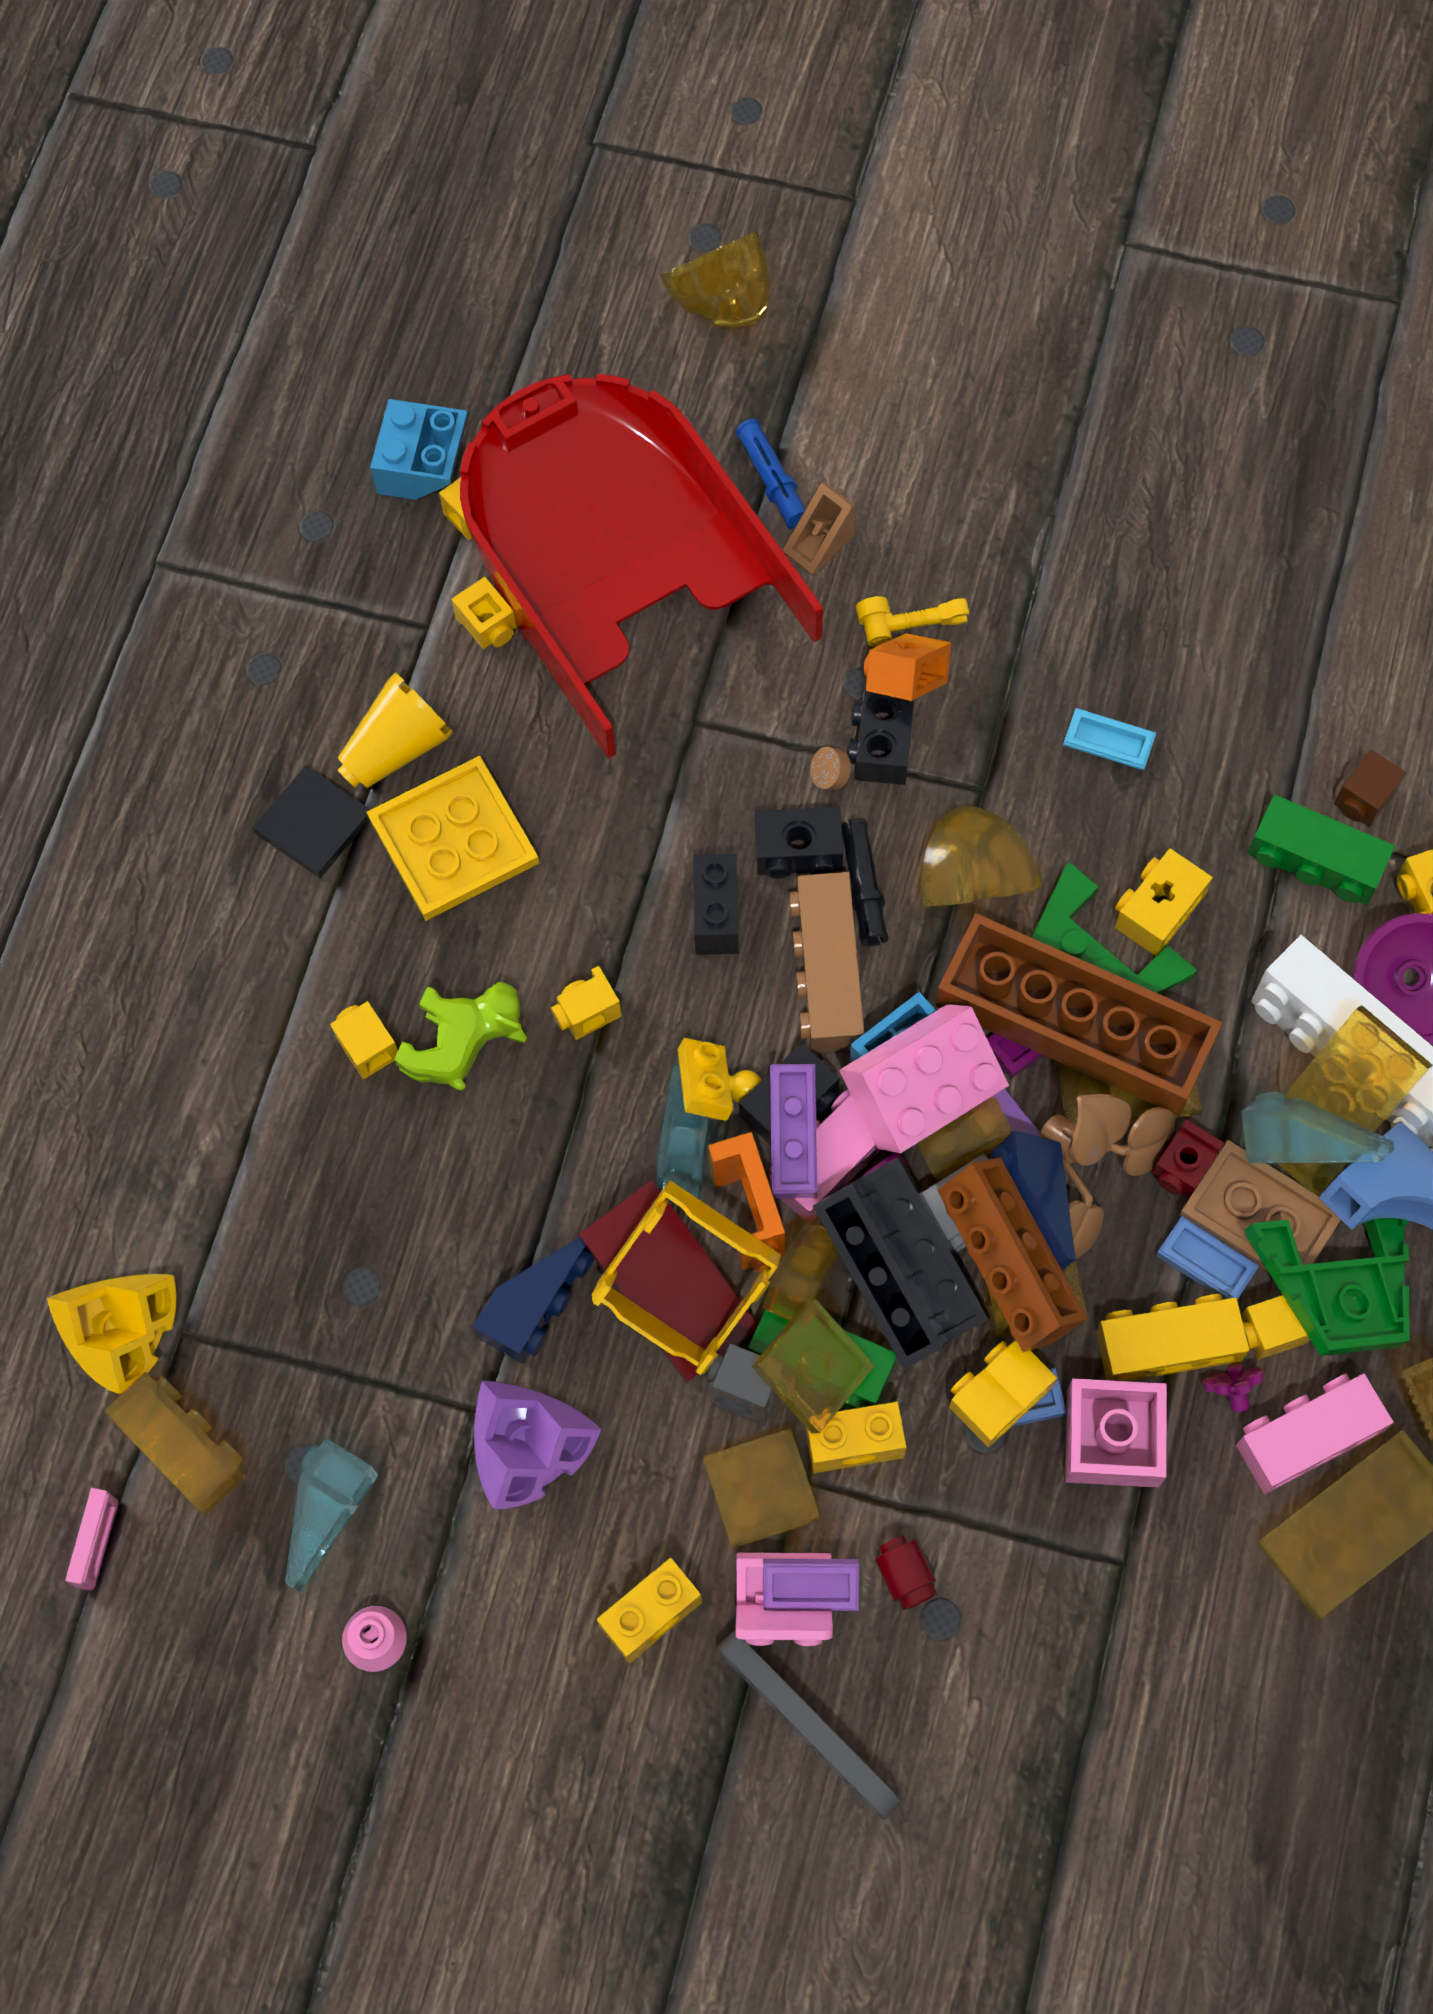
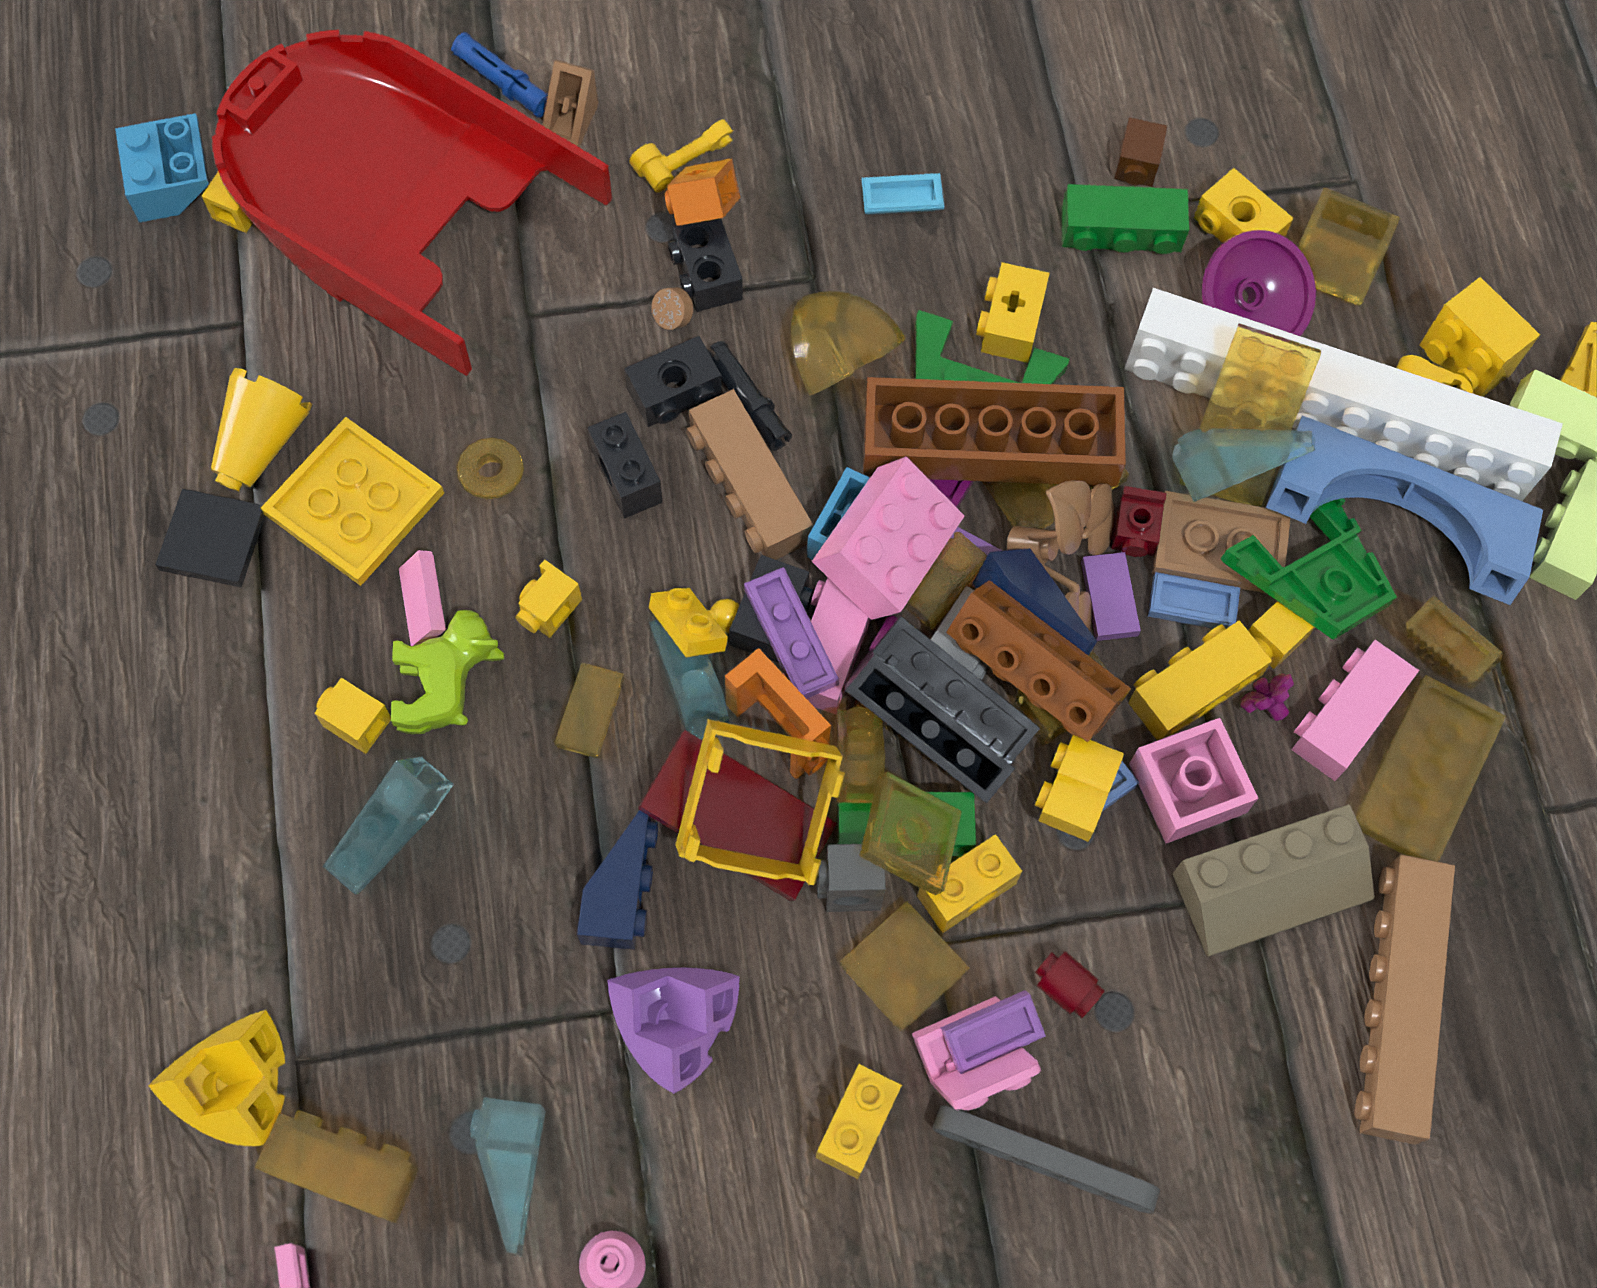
camera: 30 degrees left, 0 degrees up
(354, 1150) = (388, 821): none -> clear light blue slope
(474, 955) = (421, 598): none -> bright pink tile
(485, 614) = (292, 289): yellow brick -> none
(580, 1124) = (589, 710): none -> clear yellow tile
(587, 839) = (488, 451): none -> clear yellow piece
(1126, 1221) = (1111, 596): none -> medium lavender tile
(1155, 1564) = (1276, 880): none -> dark tan slope
(1226, 1733) = (1406, 1000): none -> medium nougat brick

